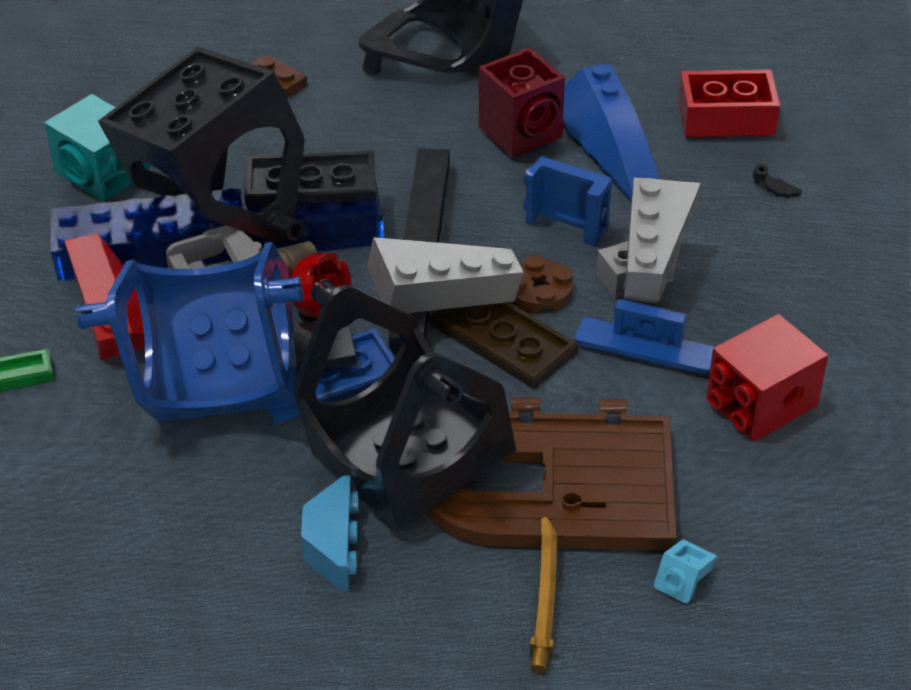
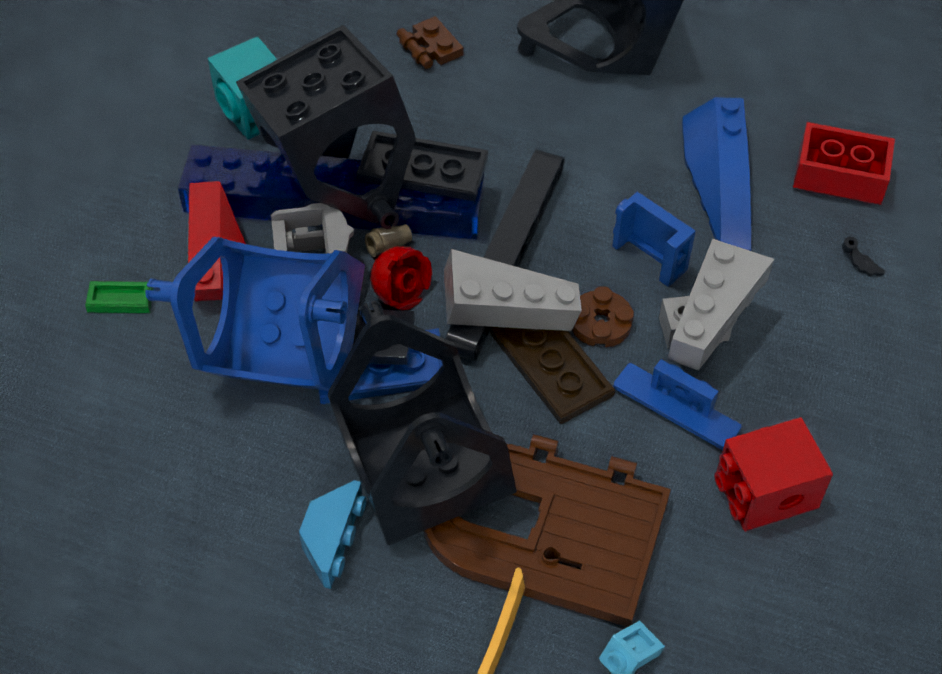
camera: 15 degrees right, 10 degrees up
(521, 102) = (643, 123): dark red brick -> none

